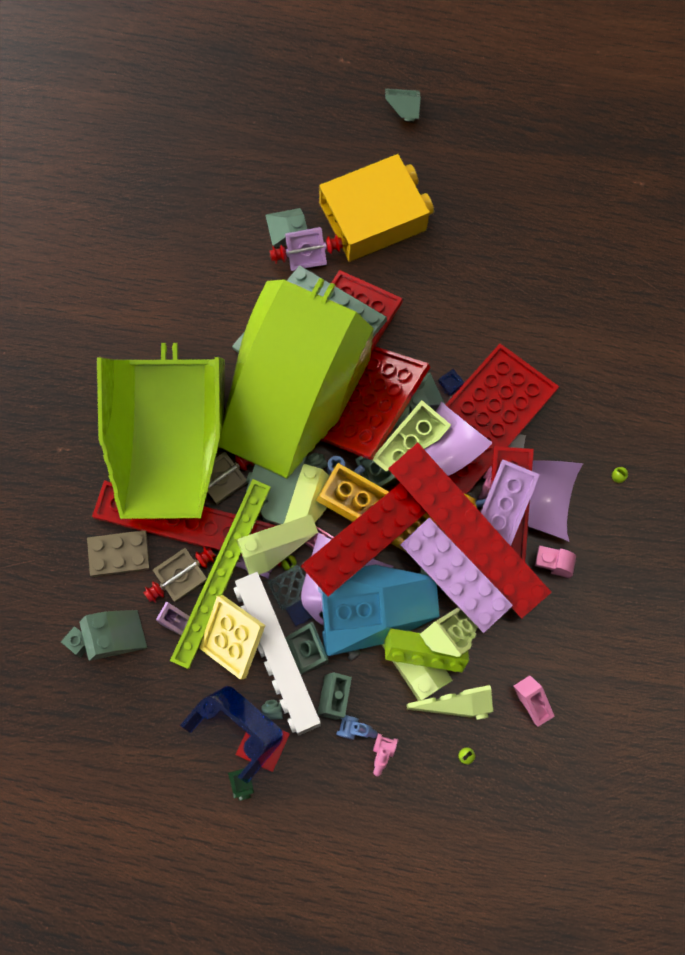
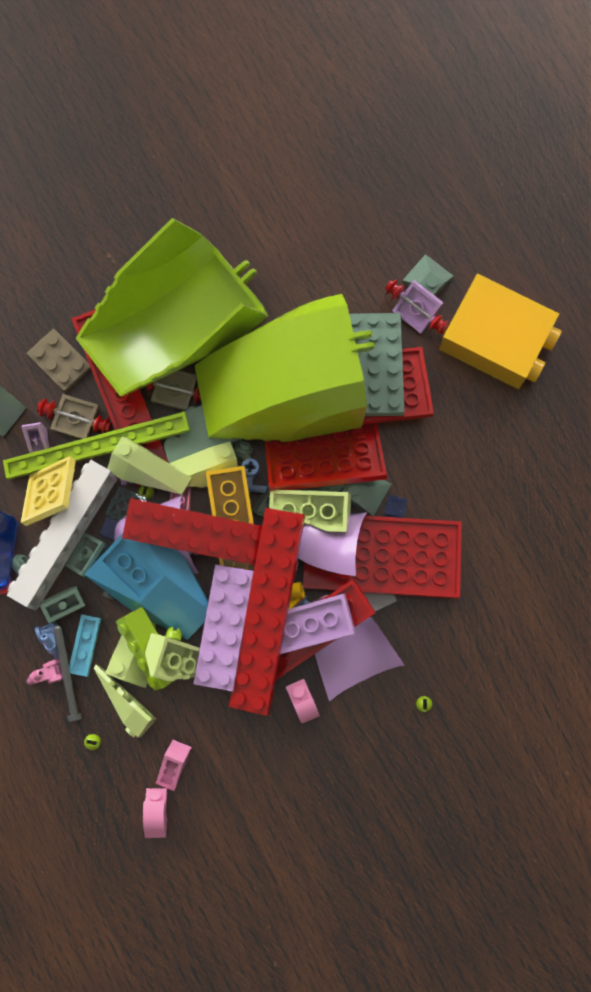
camera: 60 degrees right, 5 degrees up
(382, 704) = (84, 645): none -> medium azure plate
(431, 618) = (176, 635): none -> lime hinge
(434, 754) = (74, 715): none -> dark grey bar
(564, 742) = (155, 813): none -> bright pink brick

